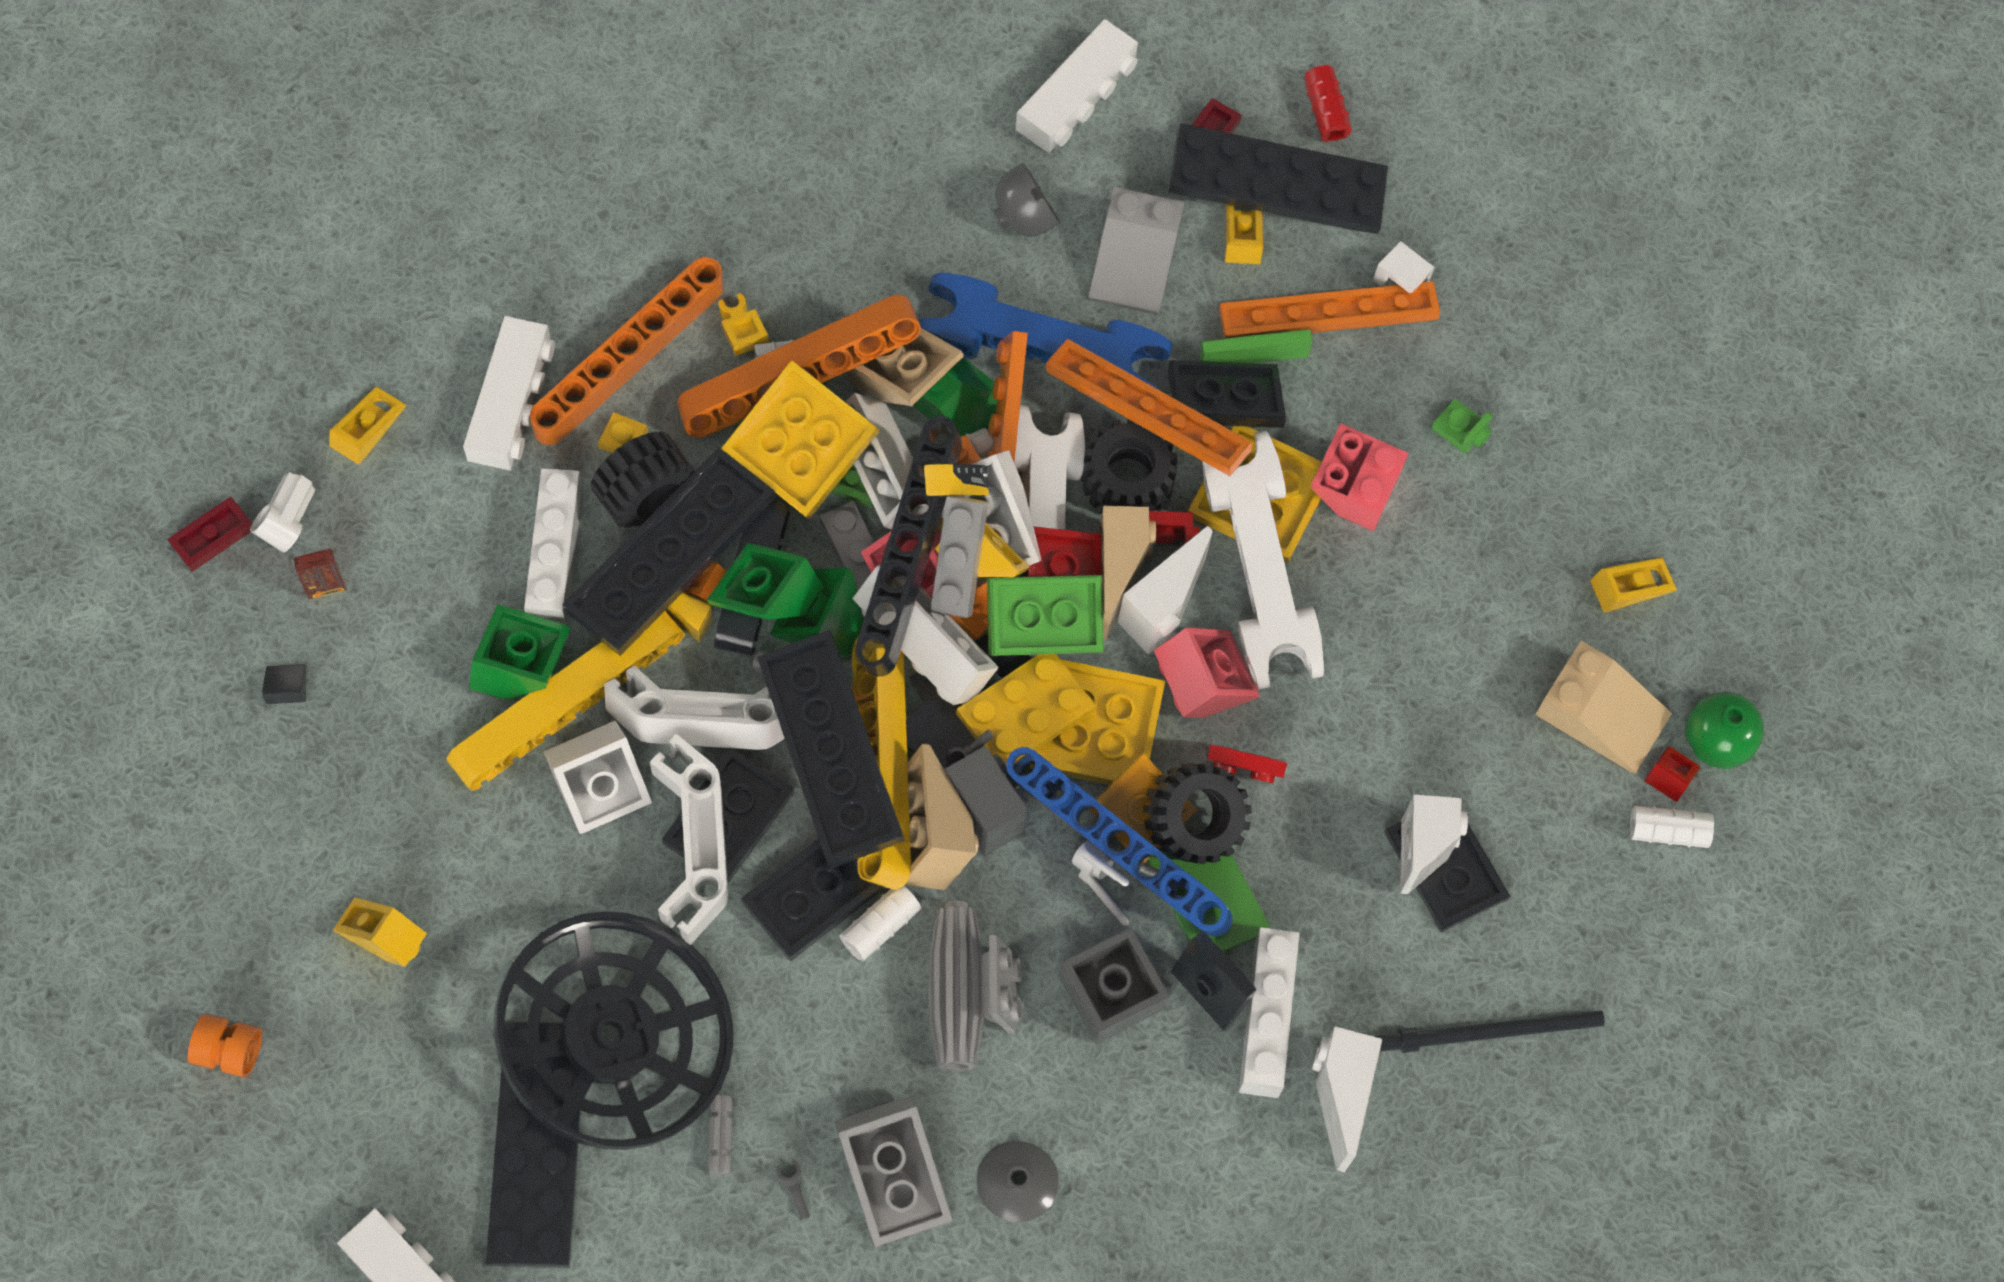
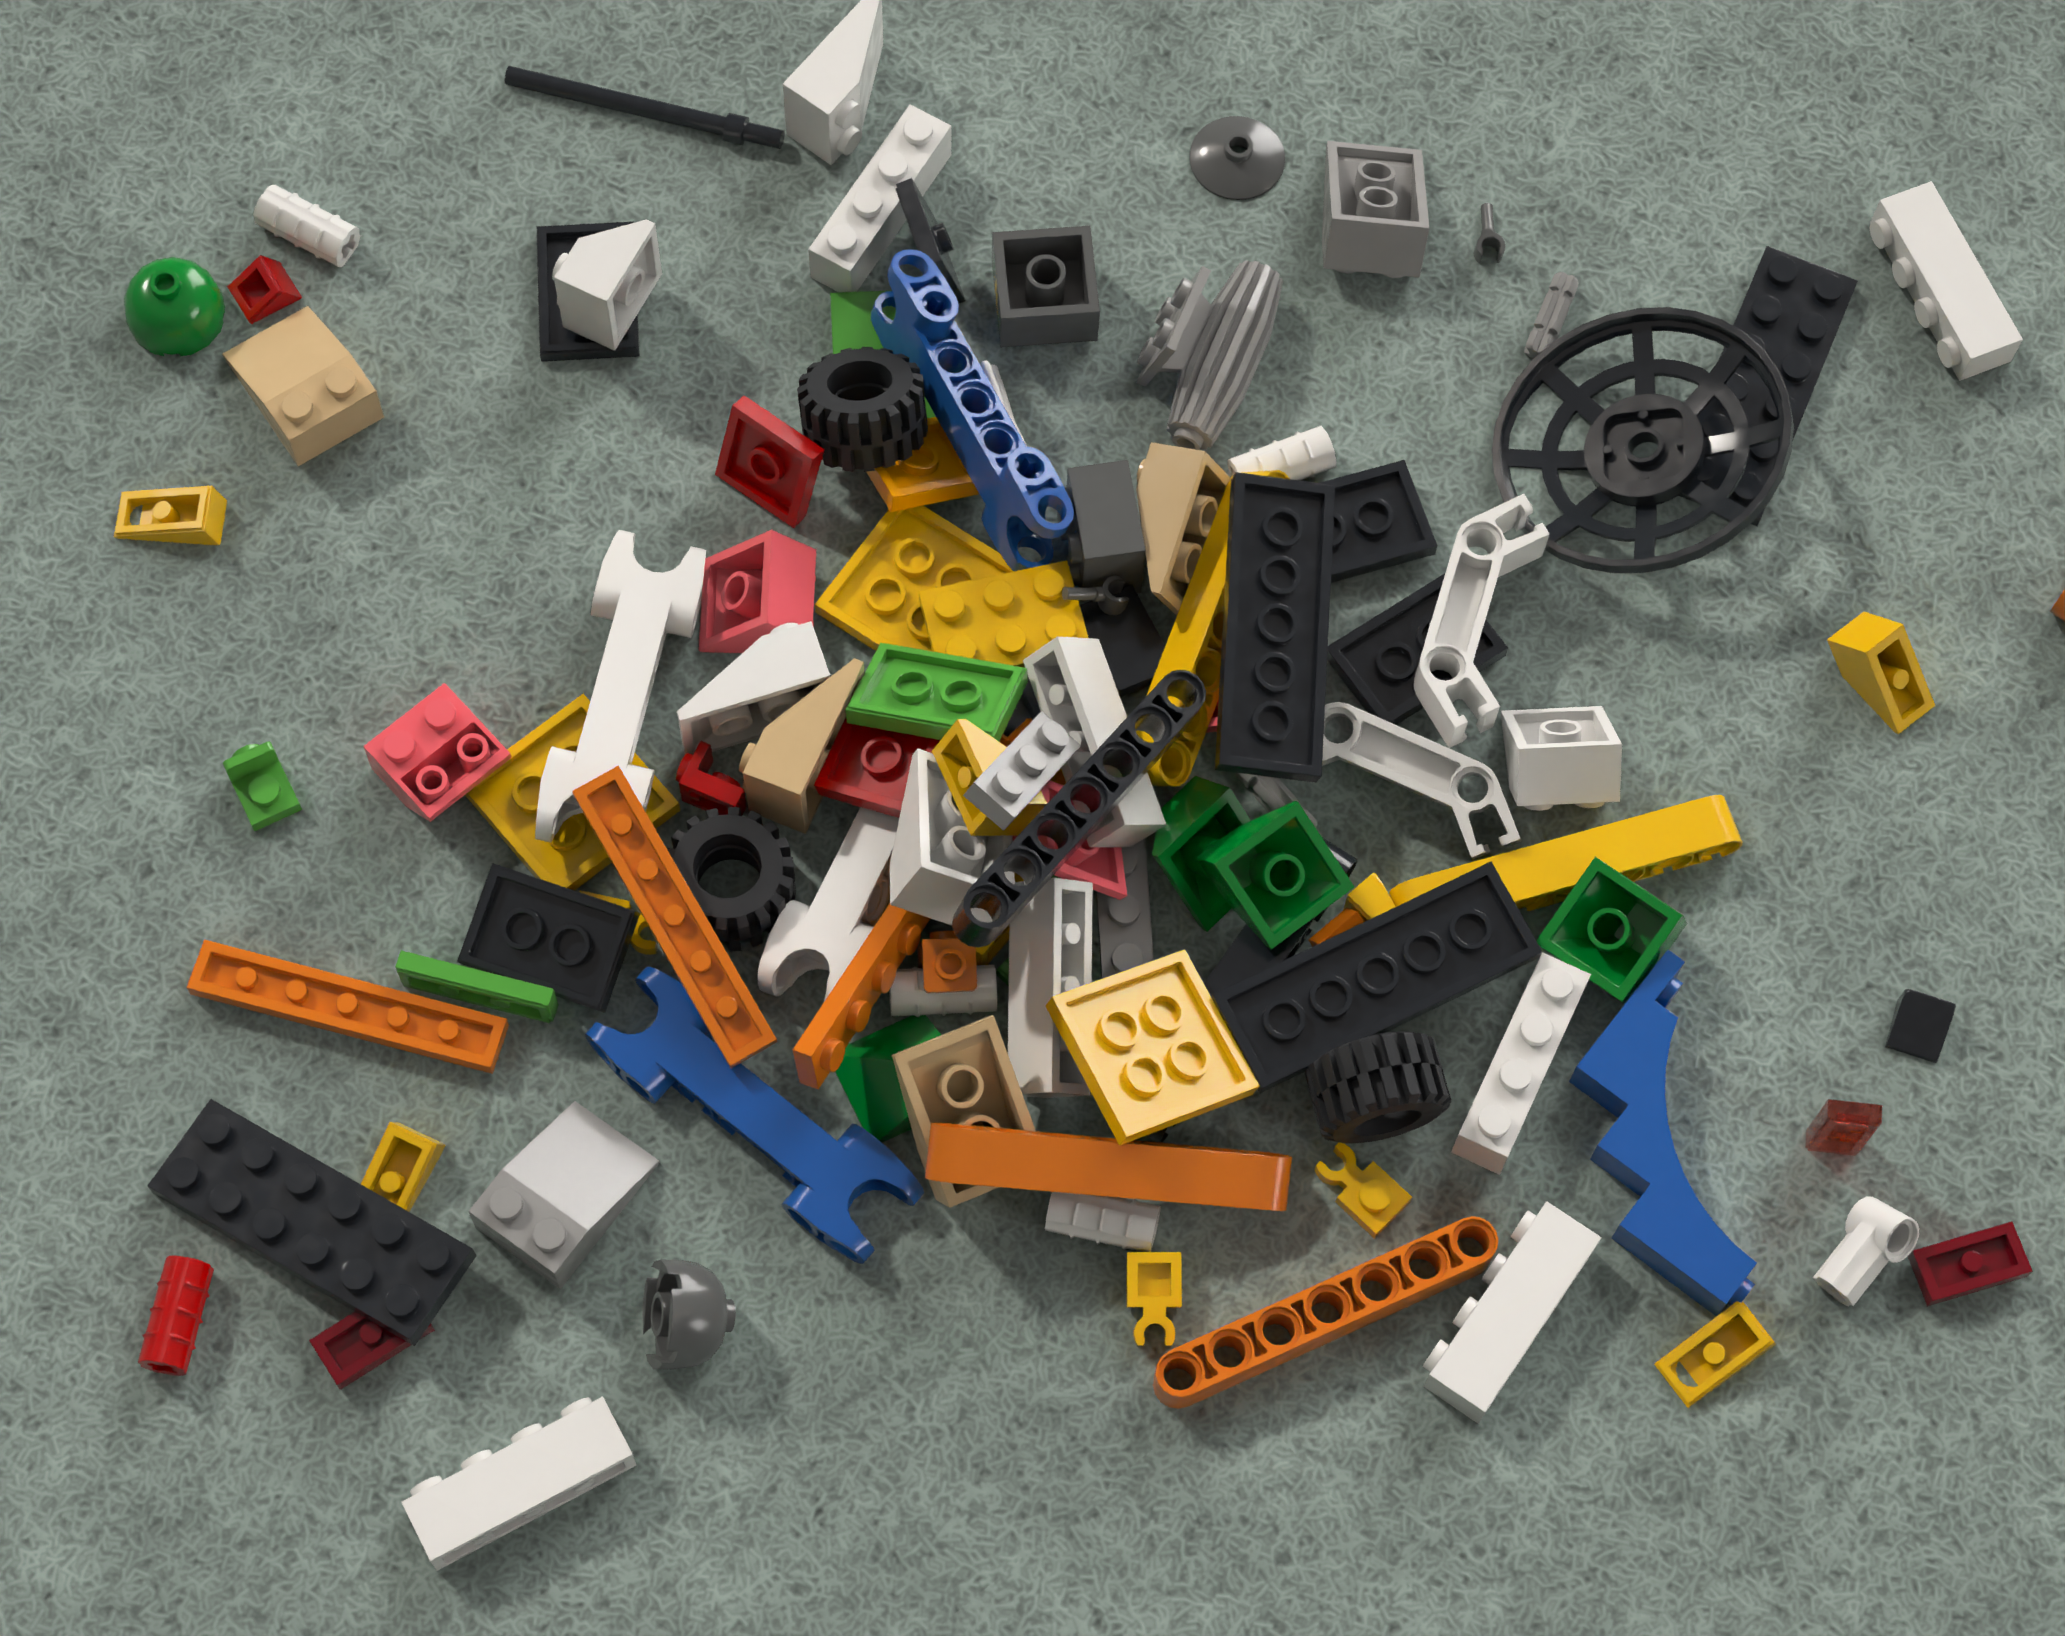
camera: 155 degrees left, 0 degrees up
(425, 483) = (1668, 1222): none -> blue arch
(956, 479) = (990, 842): yellow sticker -> none
(1404, 268) = (219, 1016): white panel -> none

